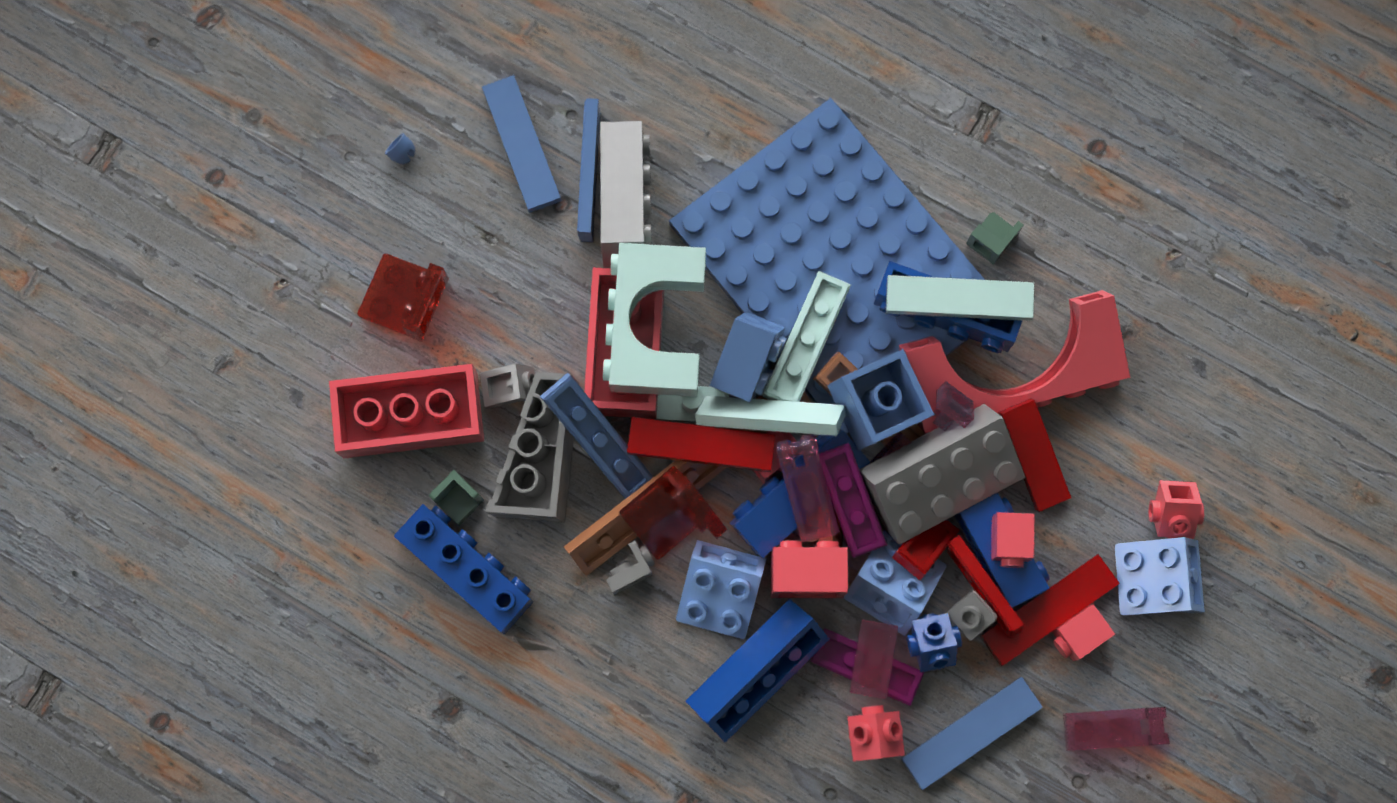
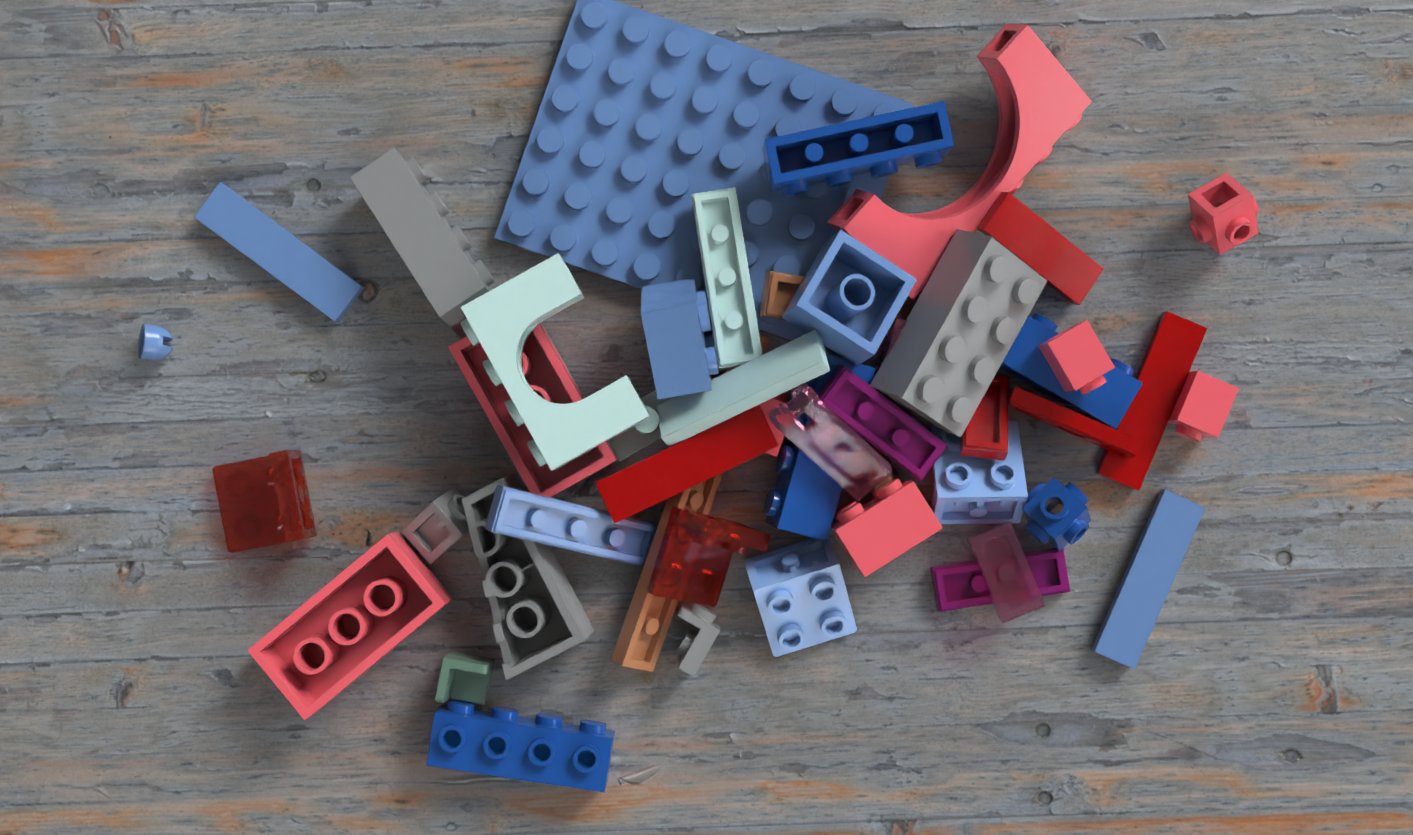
camera: 35 degrees left, 10 degrees up
(588, 170) = (371, 236): medium blue tile -> none
(757, 670) = (893, 660): blue brick -> none
(876, 734) = (1055, 647): coral brick -> none
(951, 407) = (929, 256): clear purple tile -> none
(960, 297) = (866, 133): light aqua tile -> none
(972, 615) = (1078, 461): light grey bracket -> none
(993, 237) = (852, 35): sand green panel -> none
(1114, 728) = (1291, 482): clear pink plate -> none
(1159, 576) = (1244, 296): light blue bracket -> none

